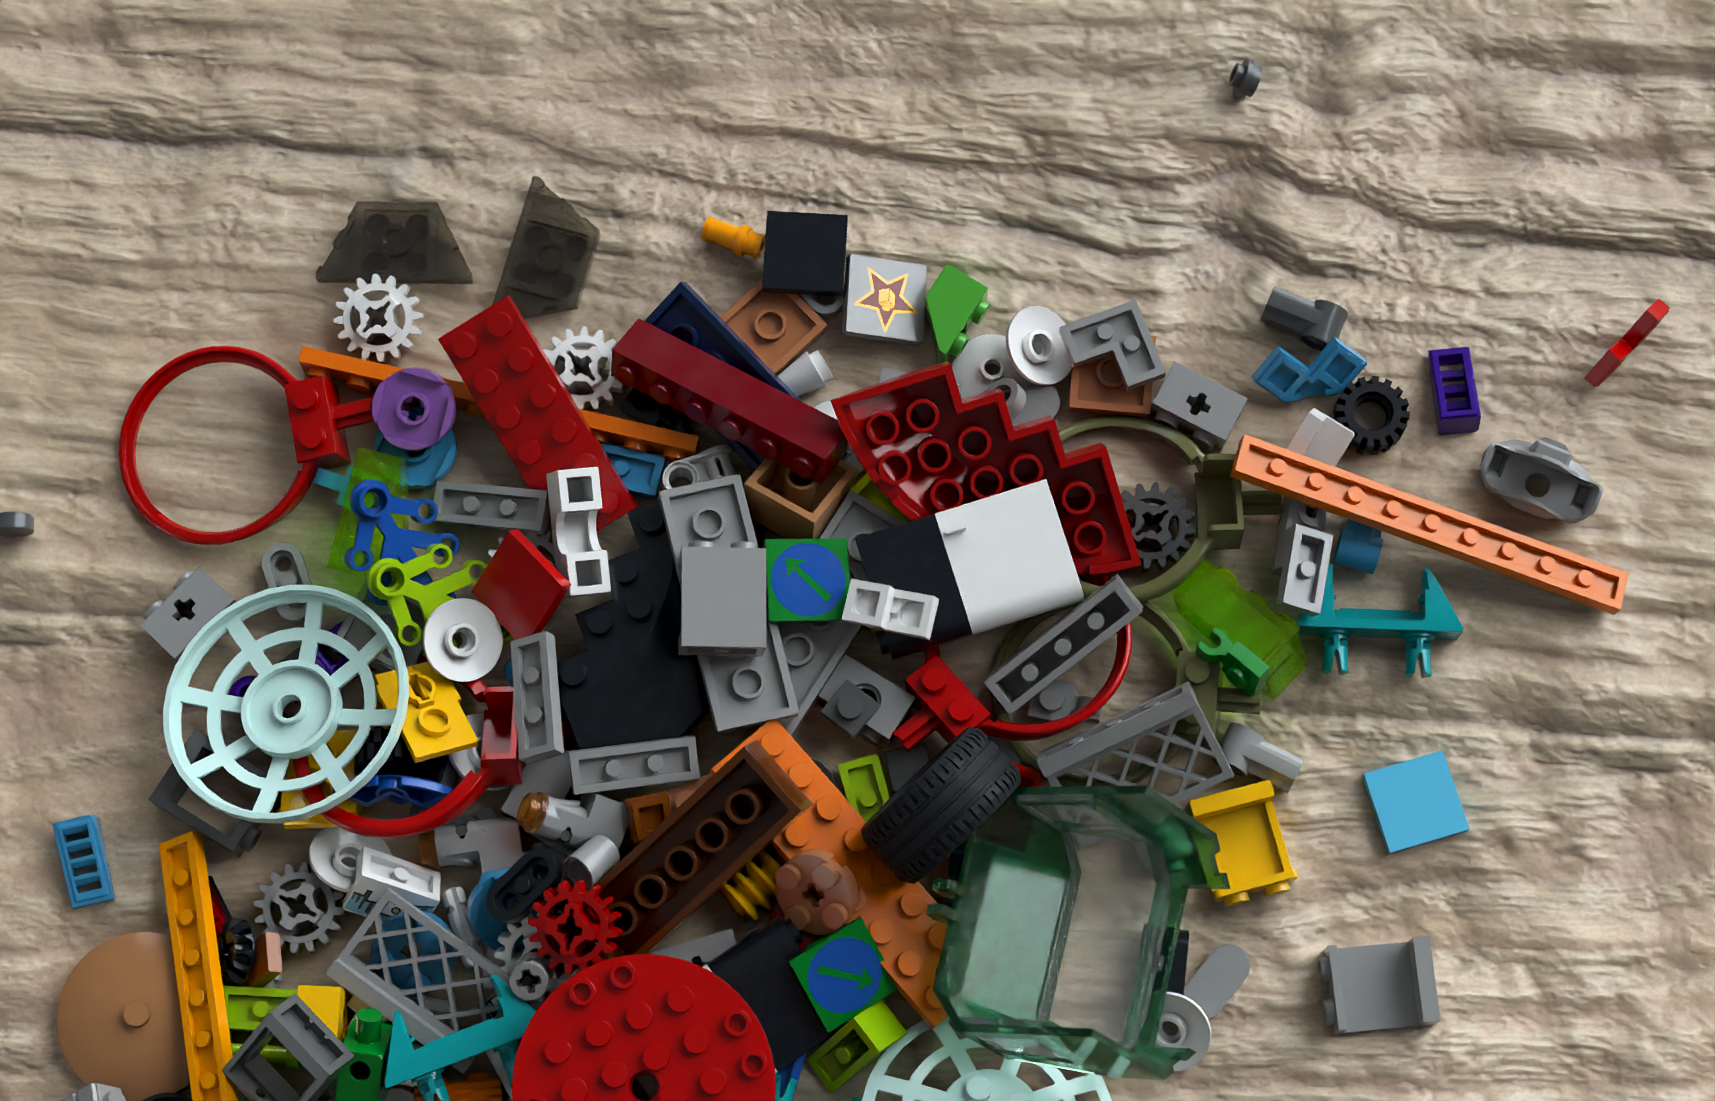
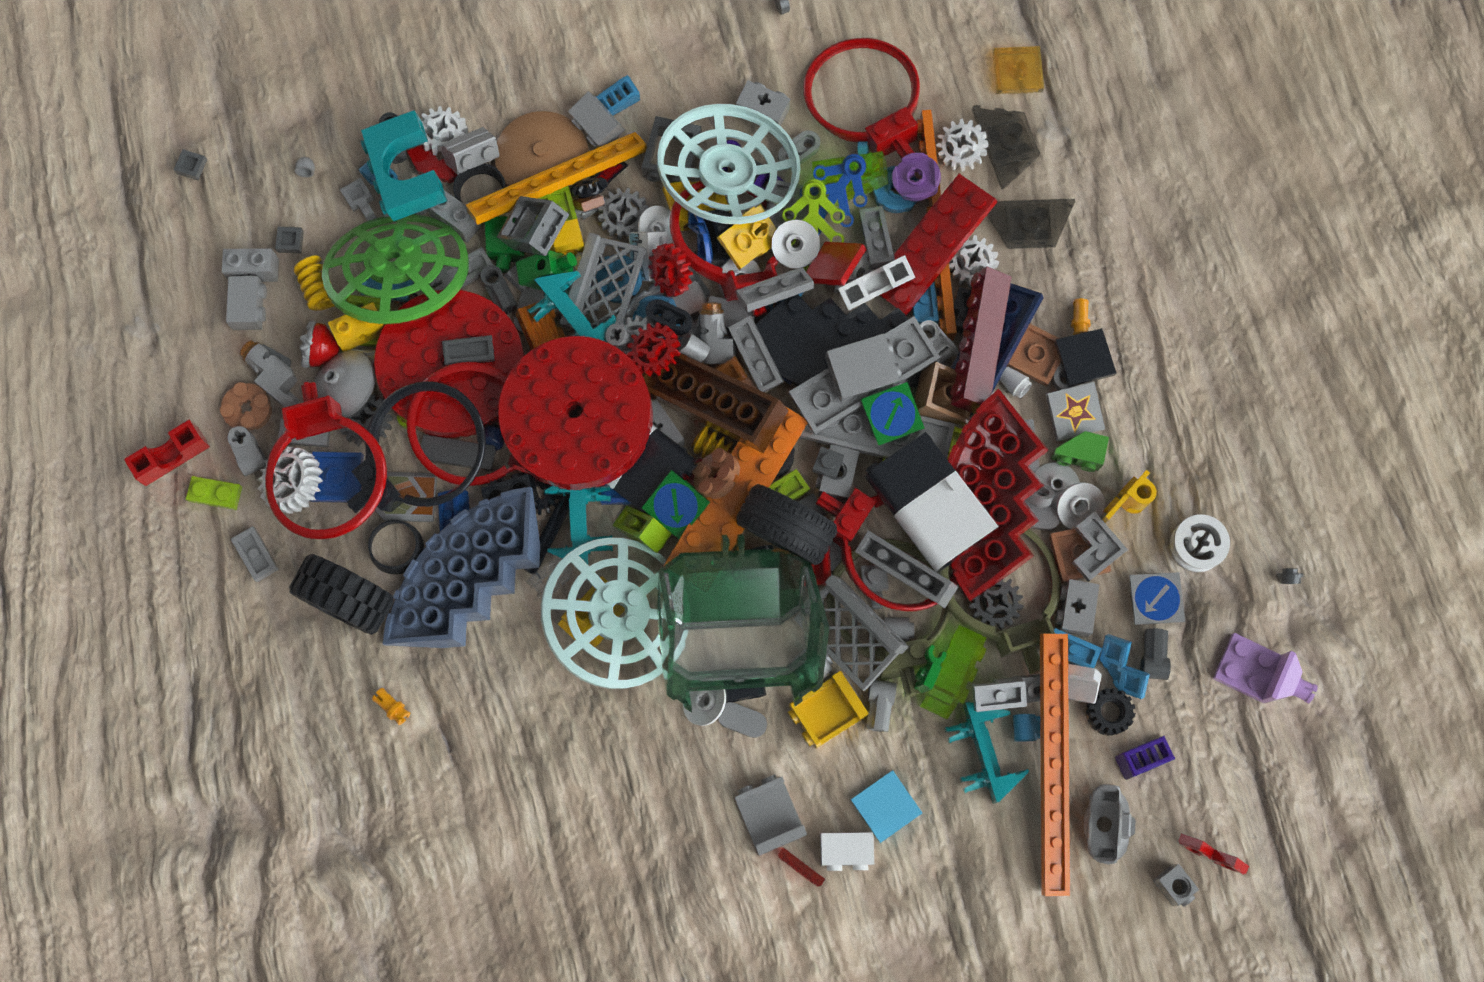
camera: 70 degrees right, 0 degrees up
(116, 904) = (595, 120): none -> light grey brick
(275, 185) = (1018, 70): none -> clear yellow plate
(440, 858) = (670, 269): none -> red gear
(890, 609) = (890, 463): white slope -> none
(1050, 260) = (1133, 497): none -> yellow piece
(1145, 685) = (901, 627): none -> light grey brick
(1166, 169) = (1215, 553): none -> white wheel
(1219, 284) = (1157, 598): none -> piece
(1270, 423) = (1080, 651): none -> dark azure plate
(1377, 173) = (1262, 672): none -> lavender plate
(1467, 884) = (846, 849): none -> white brick
(1474, 963) = (800, 867): none -> clear red tile
(1645, 425) = (1165, 880): none -> light grey brick

